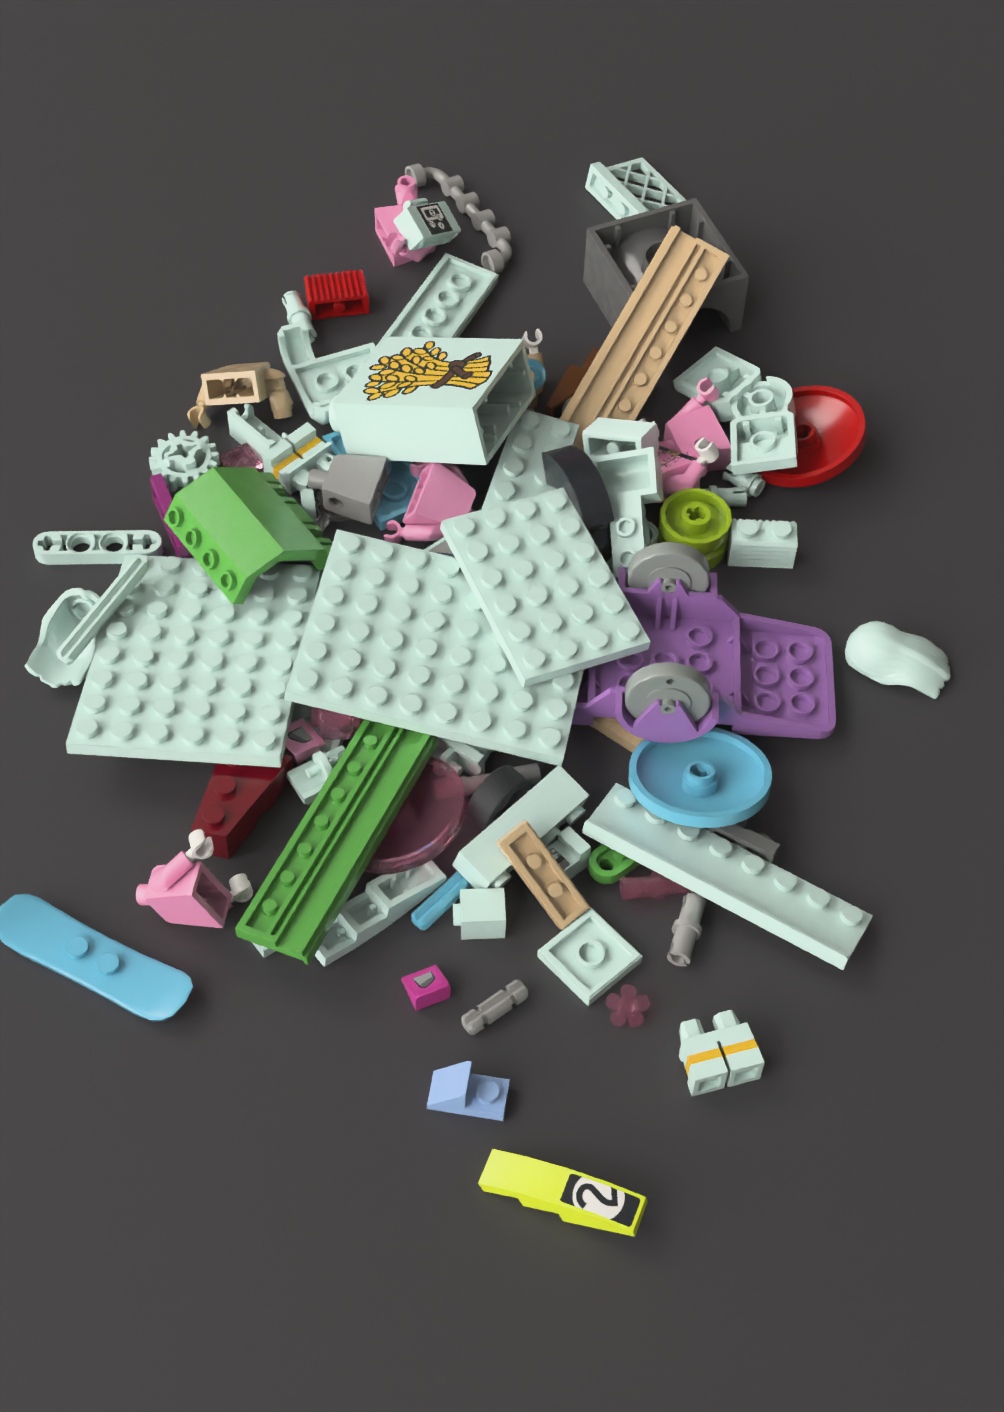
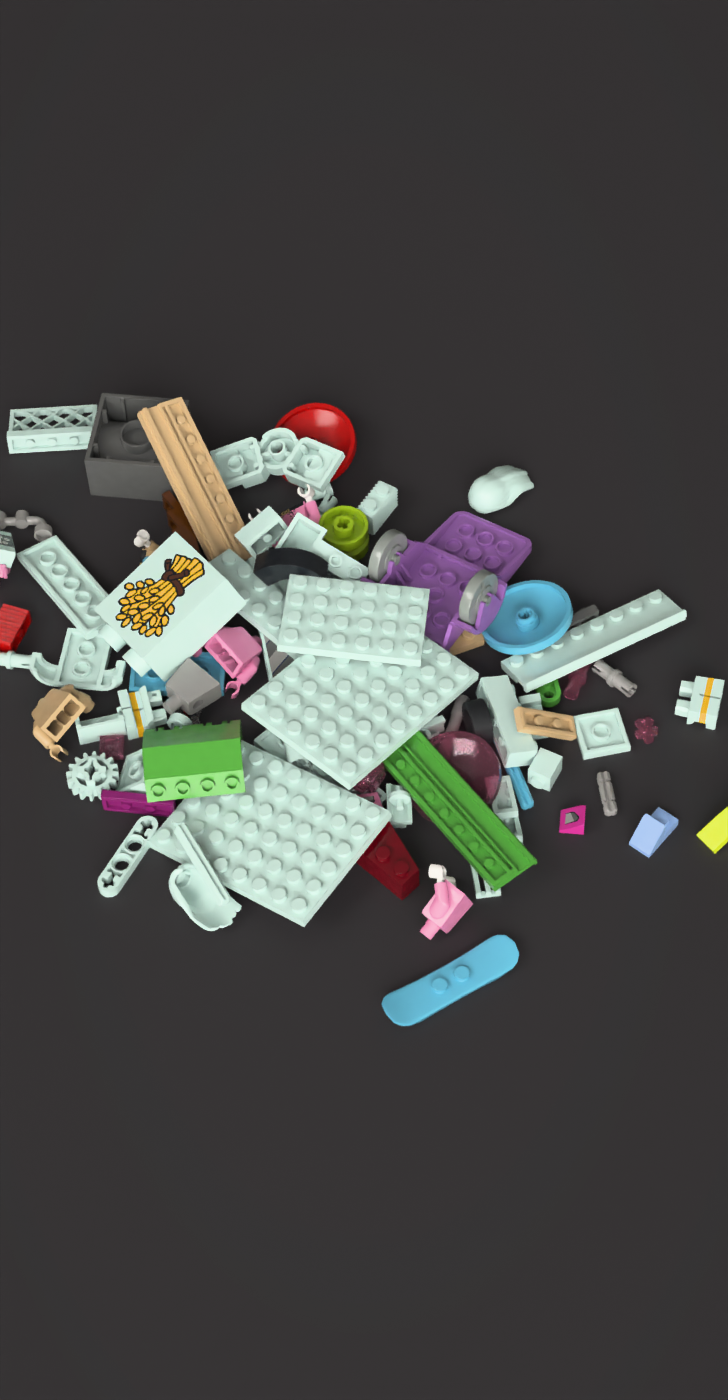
camera: 55 degrees left, 0 degrees up
(698, 422) = (269, 492): bright pink torso -> none

